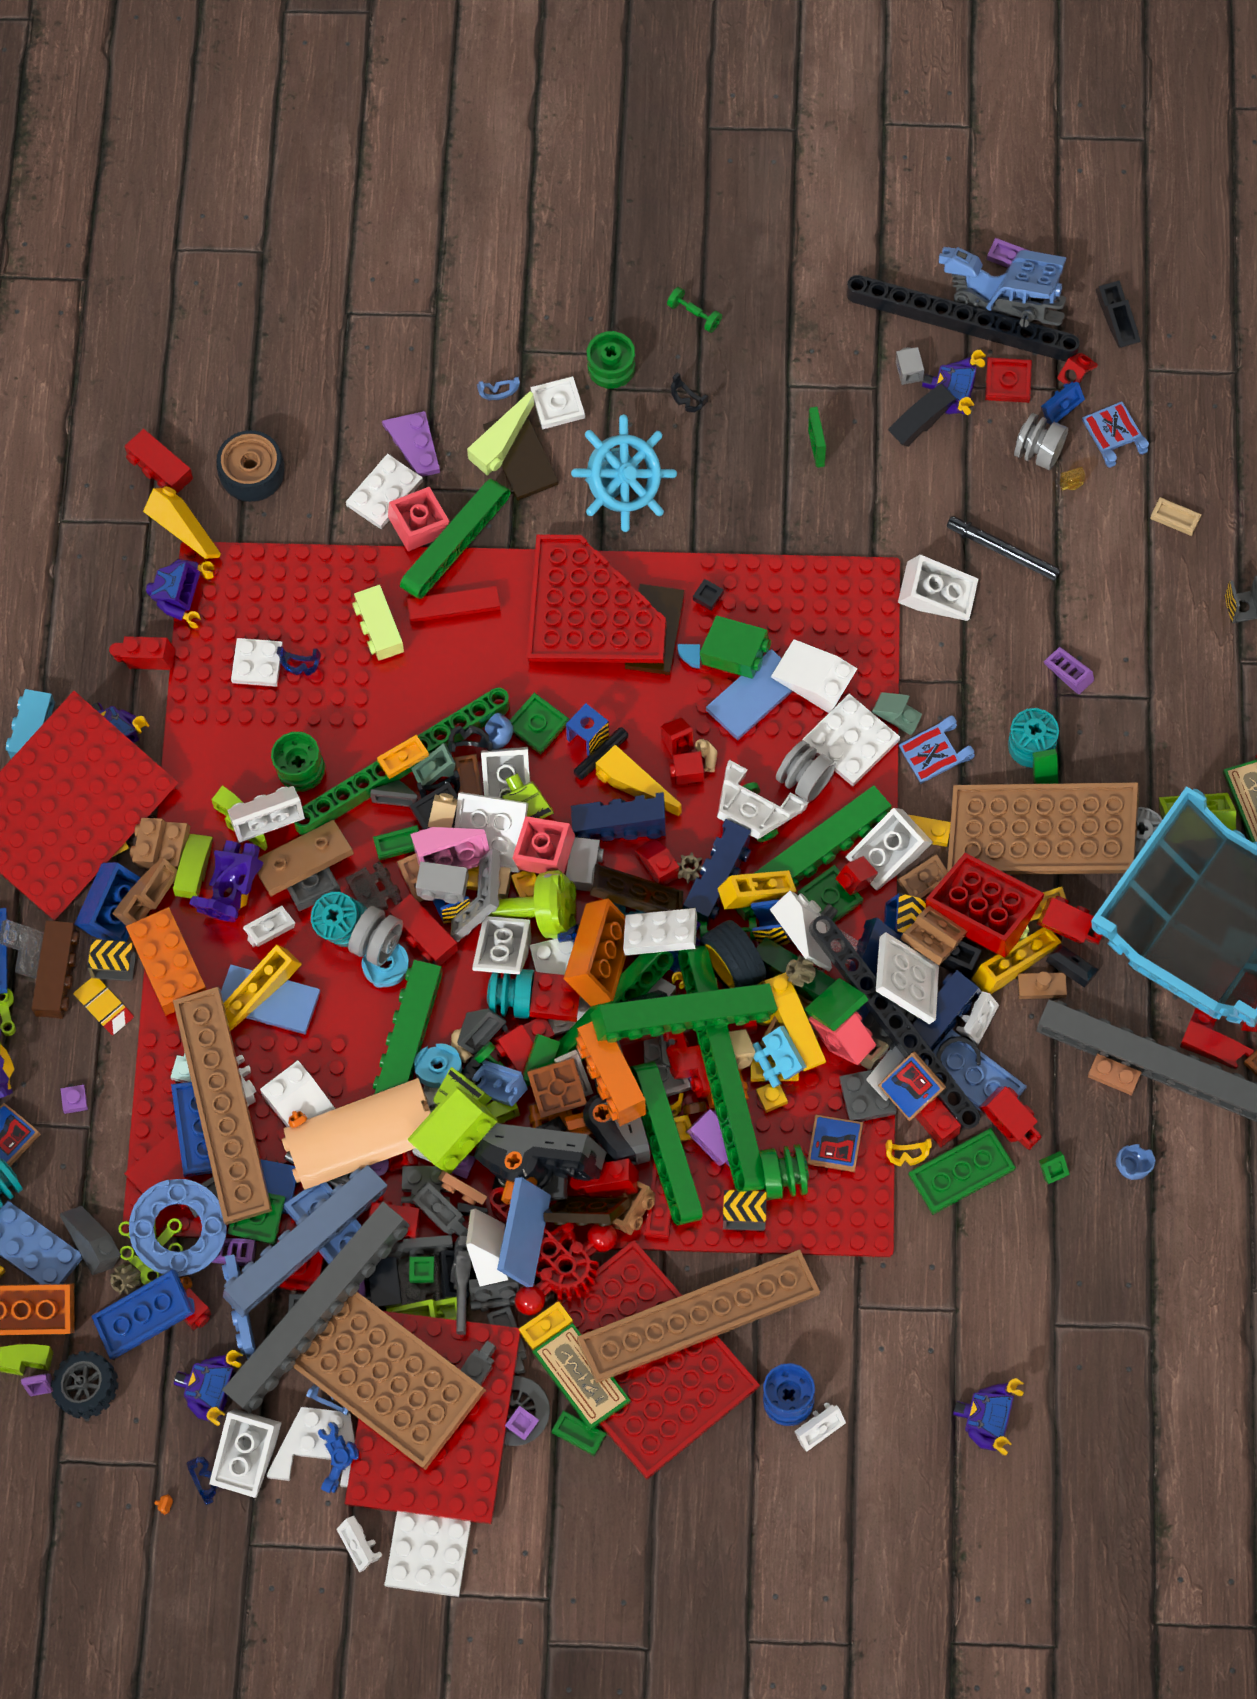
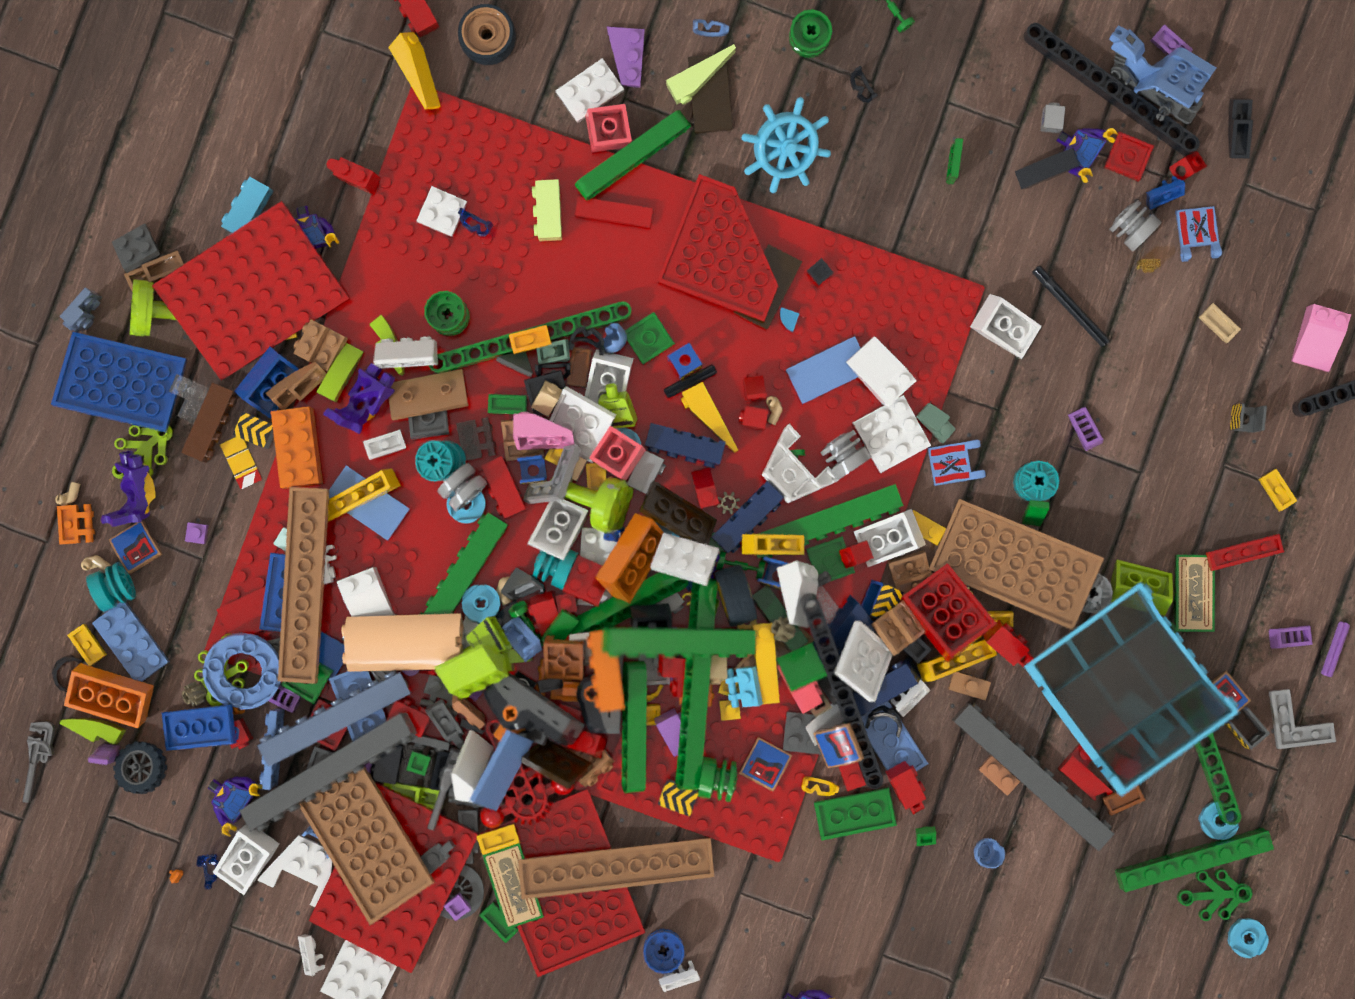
camera: 15 degrees right, 20 degrees up
(91, 1240) = (176, 652): dark grey slope -> none
(176, 586) = (394, 126): dark purple torso -> none
(297, 1119) = (358, 615): orange rock -> none
(340, 1456) = (316, 885): blue piece -> none
(442, 882) = (526, 462): light grey brick -> none
(557, 402) = (754, 57): white plate -> none
(694, 1107) = (667, 702): reddish brown tile -> none
(735, 647) = (826, 327): green brick -> none
(1072, 965) = (1002, 685): black piece -> none

